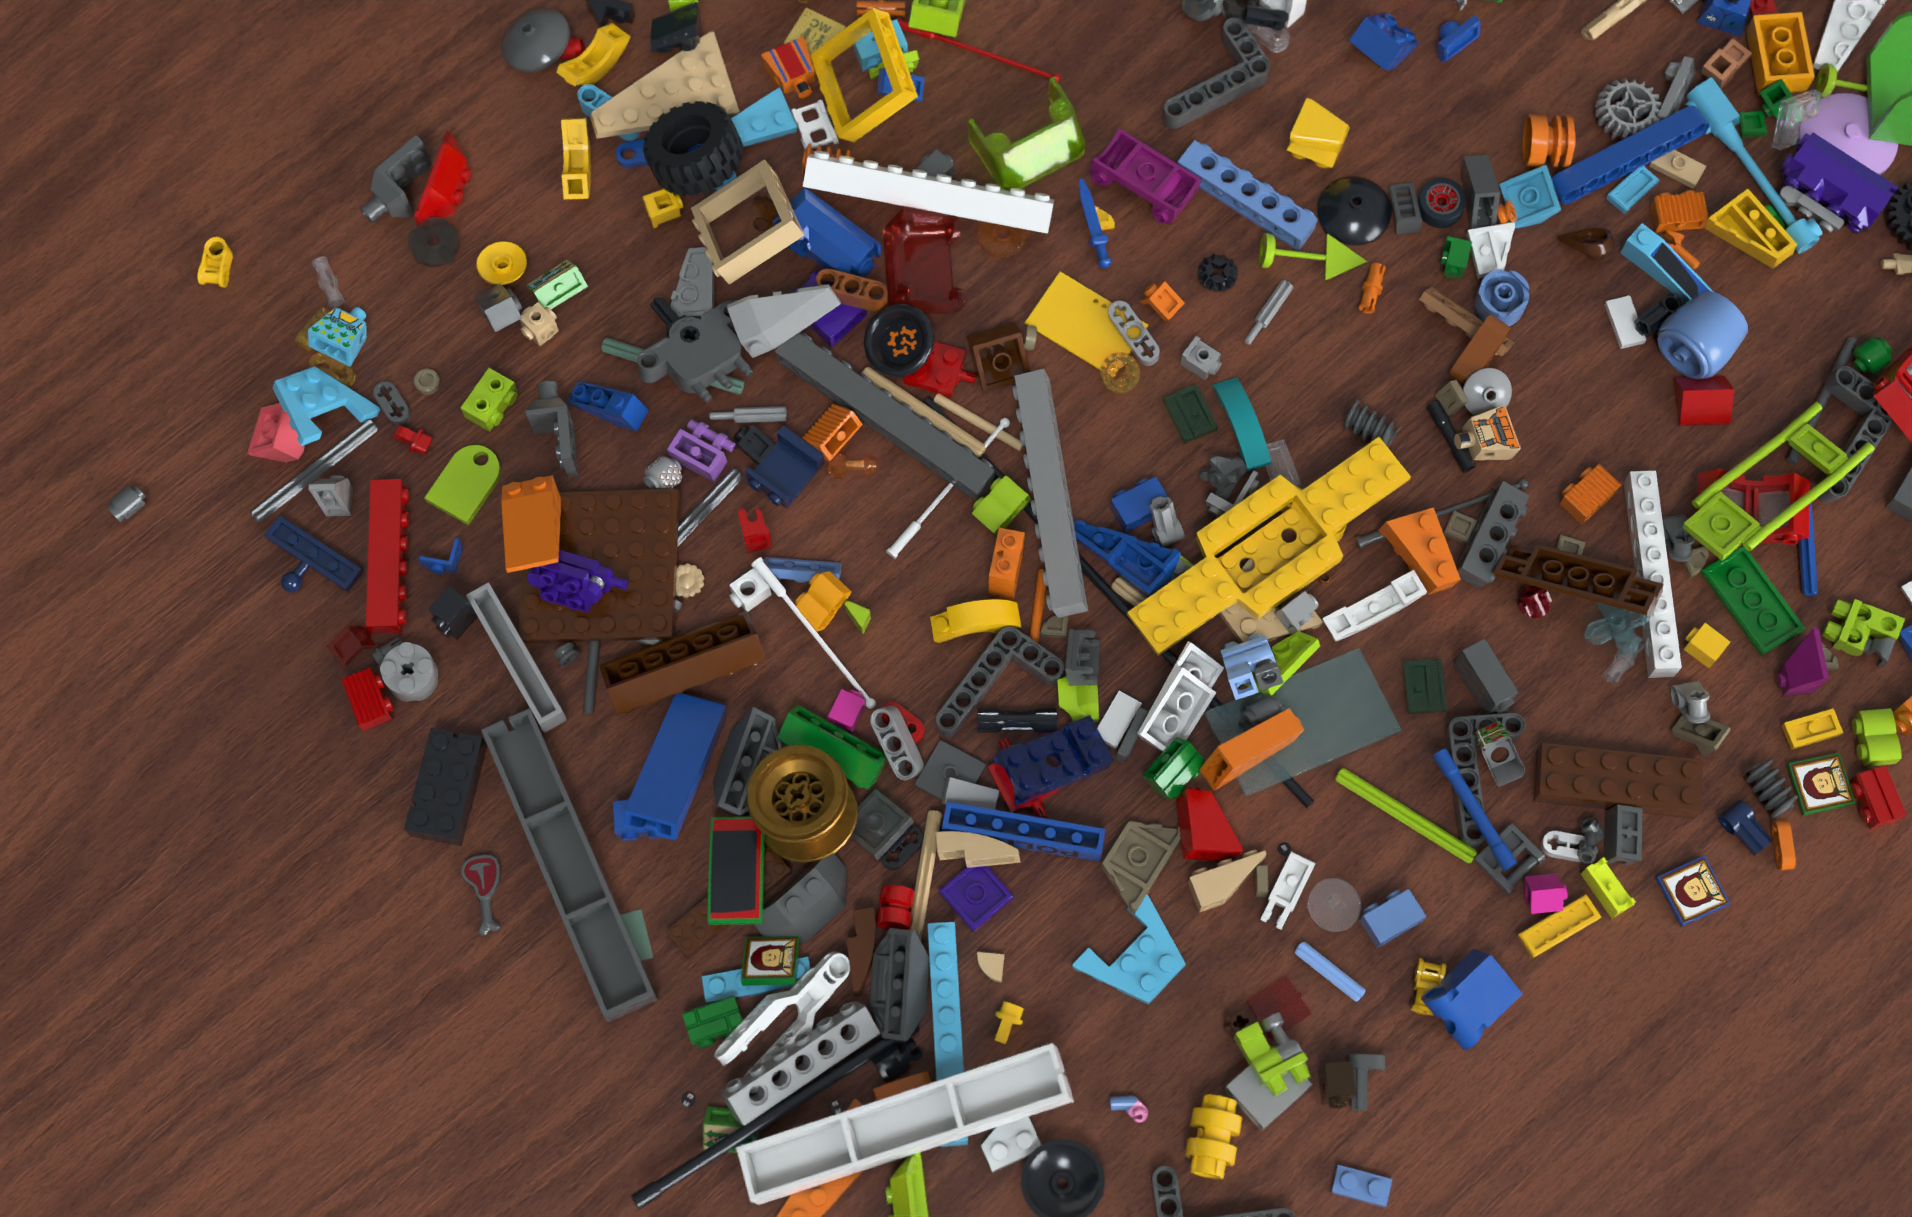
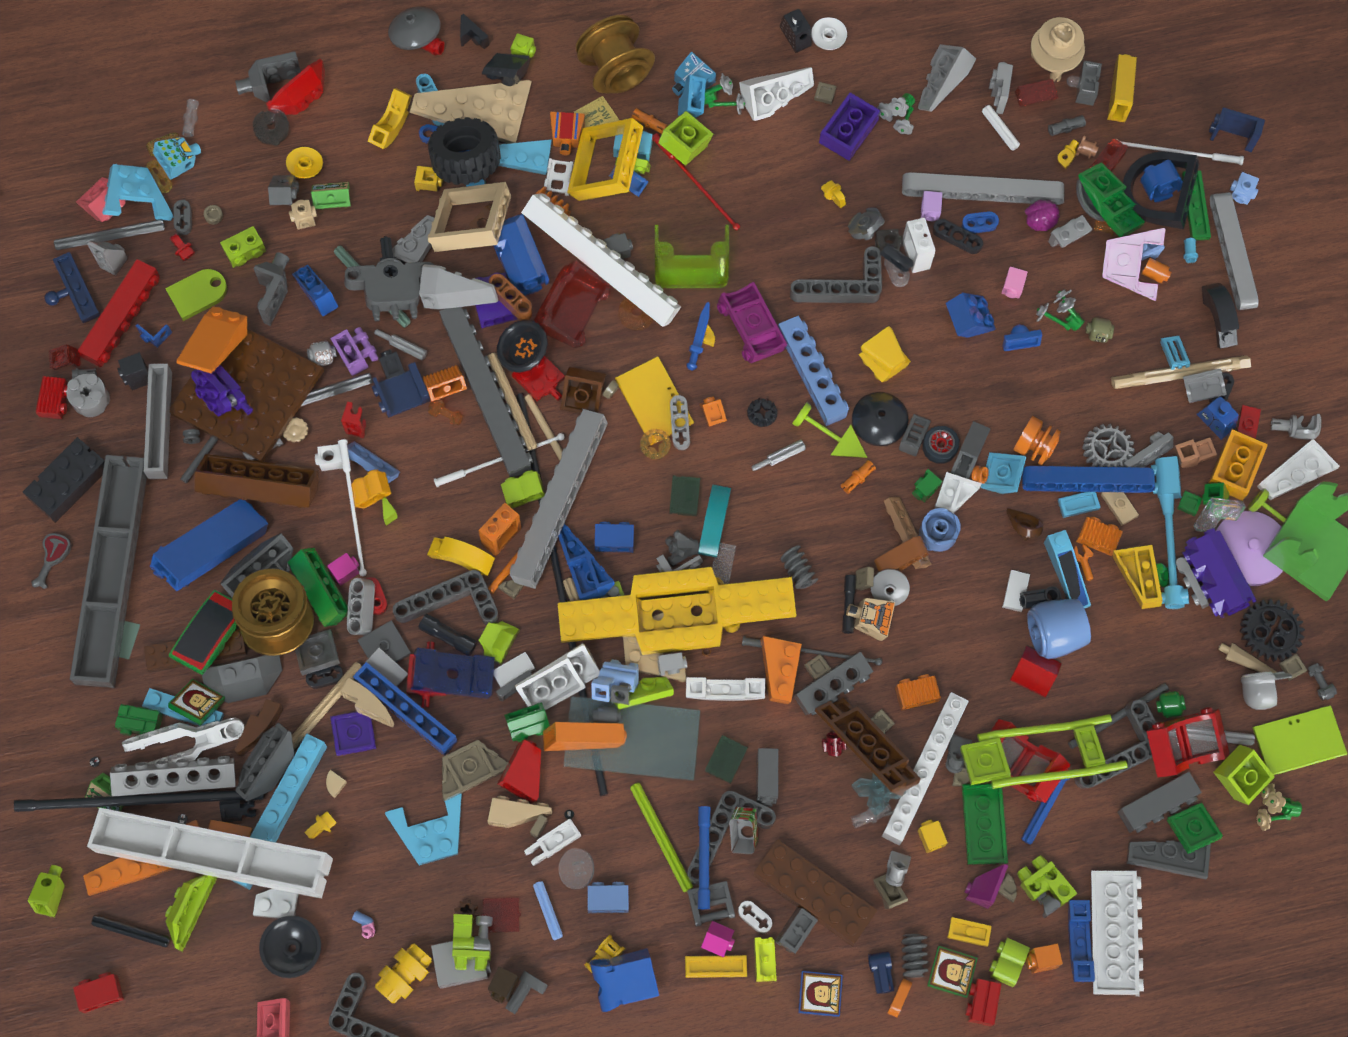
camera: 25 degrees right, 0 degrees up
(215, 268) = (126, 72): yellow piece -> none
(597, 58) = (445, 61): yellow arch -> none
(895, 907) = (294, 712): red wheel -> none
(1082, 658) = (512, 617): dark grey hinge -> none
(1166, 525) = (621, 558): light grey piece -> none
(1201, 367) = (707, 459): light grey brick -> none
(1593, 834) = (776, 917): dark grey bar -> none

